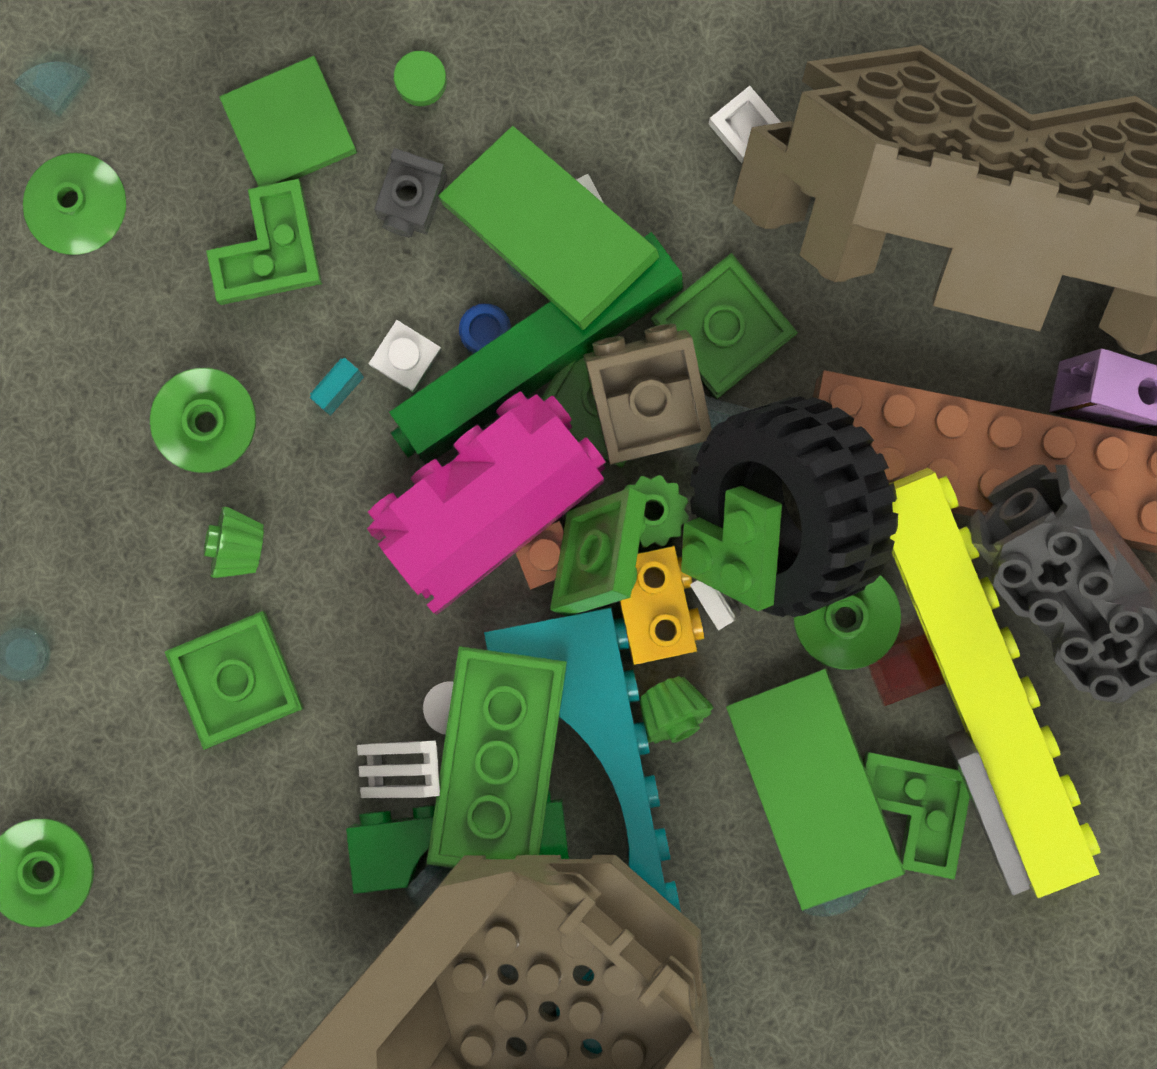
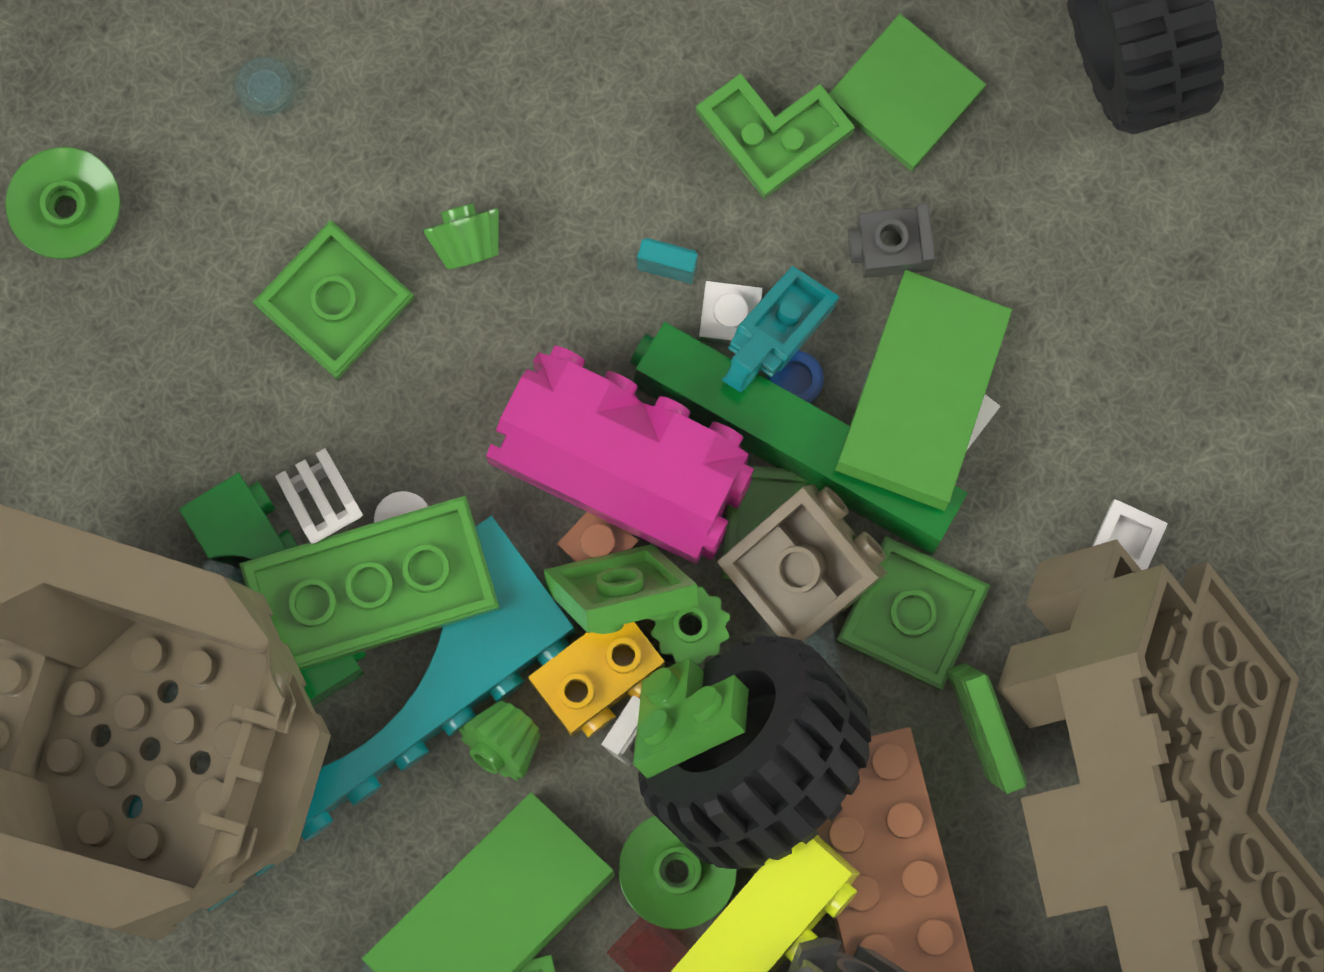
camera: 60 degrees right, 5 degrees down
(177, 413) = (566, 122): bright green dish -> none
(420, 78) = (1015, 197): bright green tile -> none
(438, 321) = (778, 327): none -> teal hinge
(854, 308) = (987, 727): none -> bright green tile

